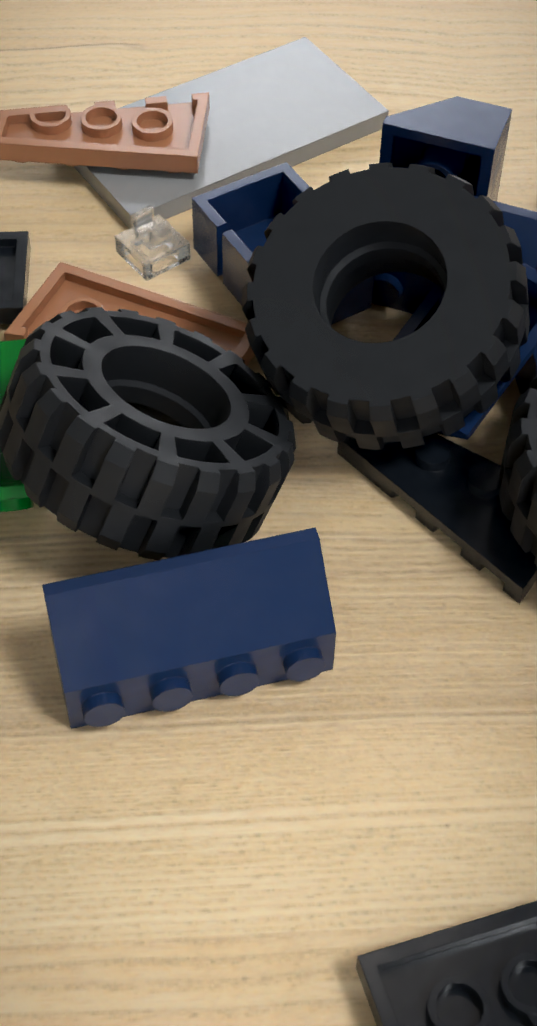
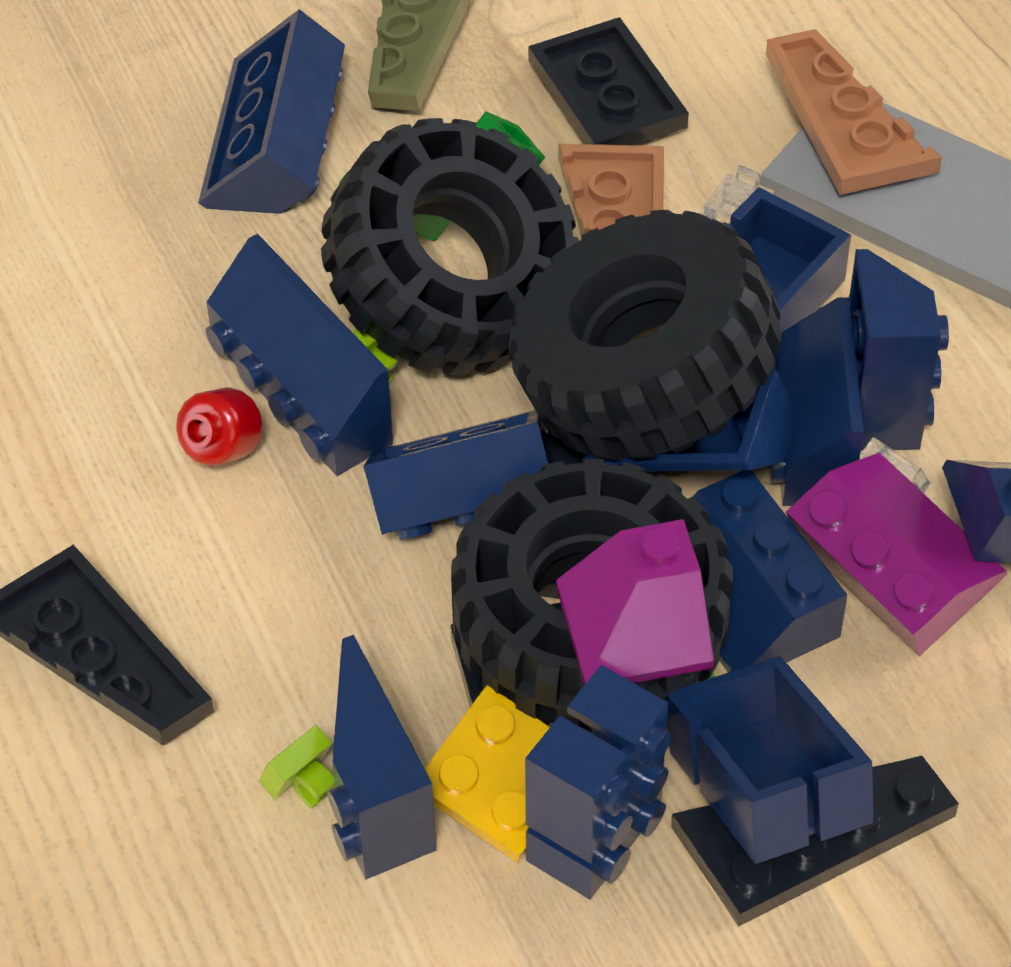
camera: 70 degrees right, 0 degrees up
(248, 743) = (219, 426): none -> red head
(414, 539) = (452, 472): none -> dark blue slope

